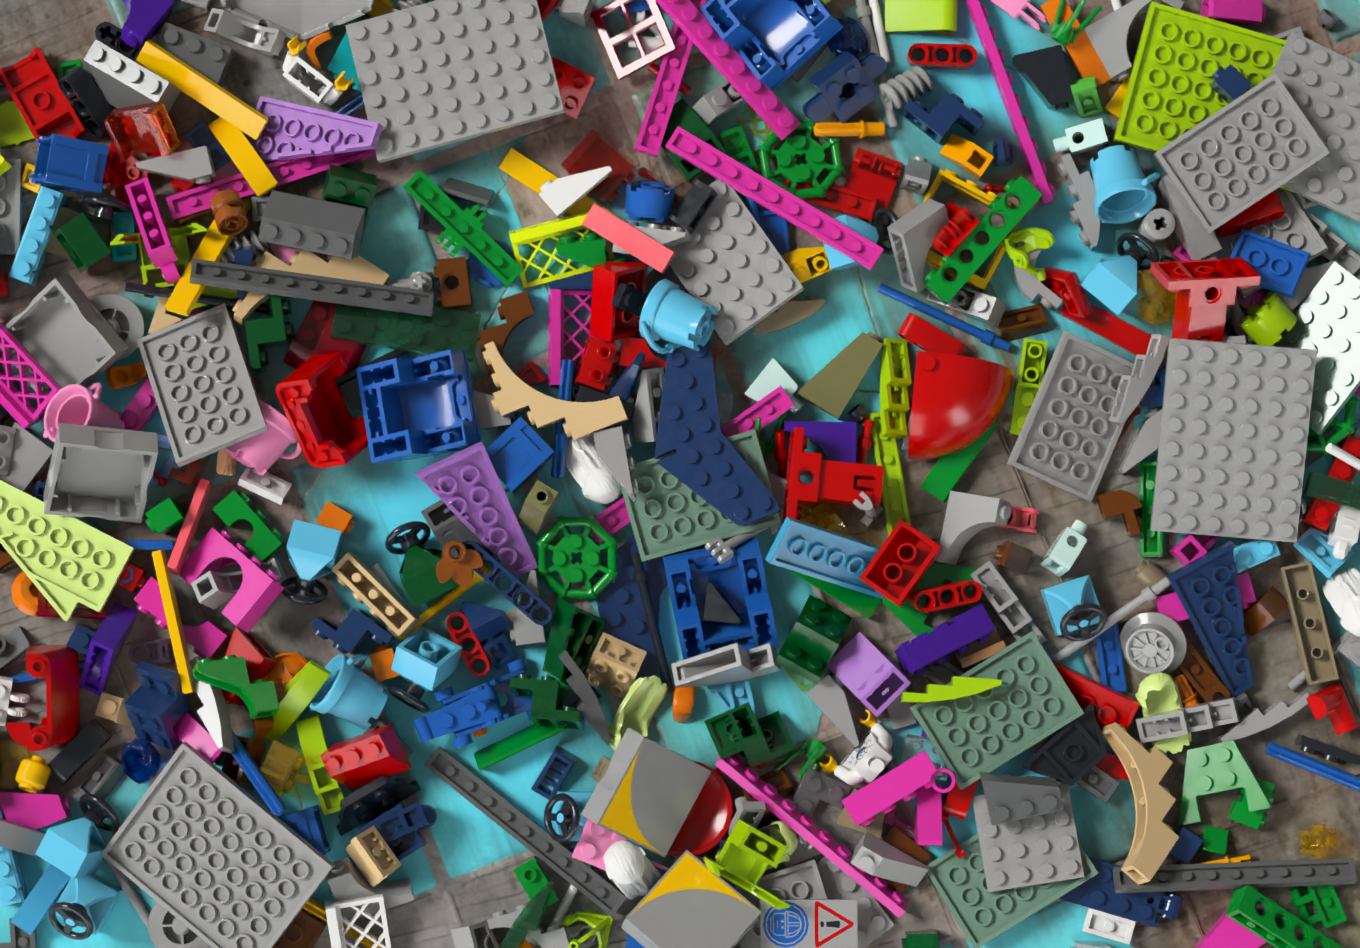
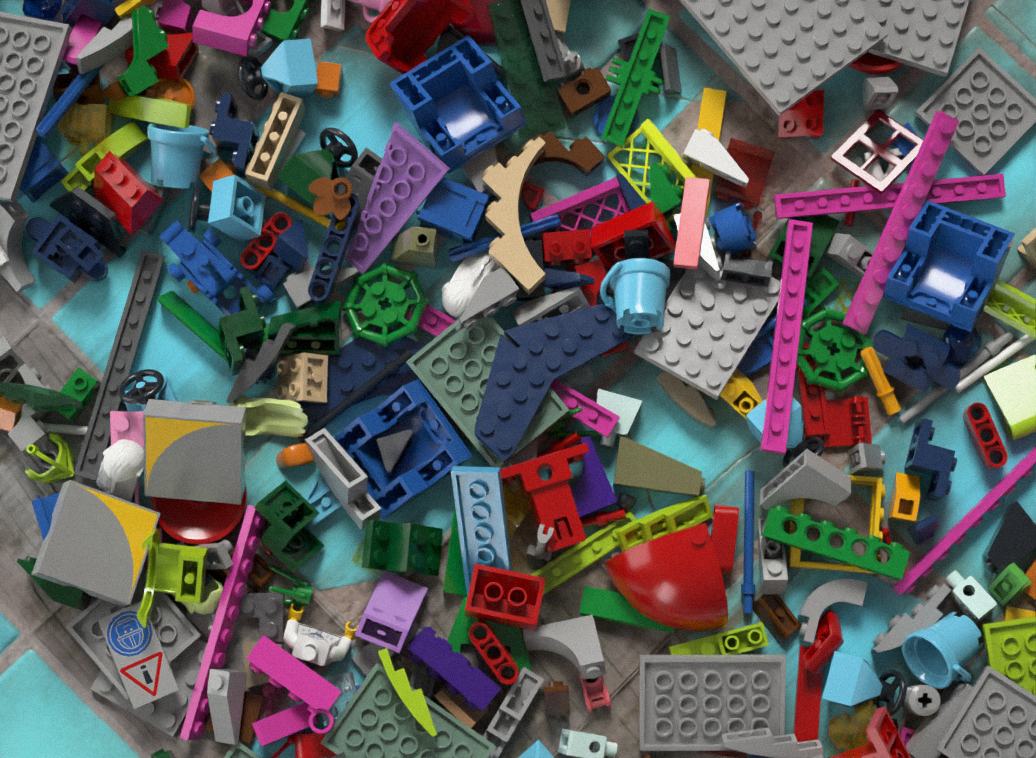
camera: 70 degrees right, 5 degrees down
(372, 856) = (39, 235): tan bracket -> none
(566, 757) = (198, 372): dark blue slope -> none
(723, 549) = (447, 428): light grey hinge -> none
(833, 704) = (352, 591): light grey slope -> none
(908, 84) = (942, 413): light grey piece -> none
(960, 226) = (839, 516): red hinge -> none
(1033, 239) = (856, 589): lime helmet -> none

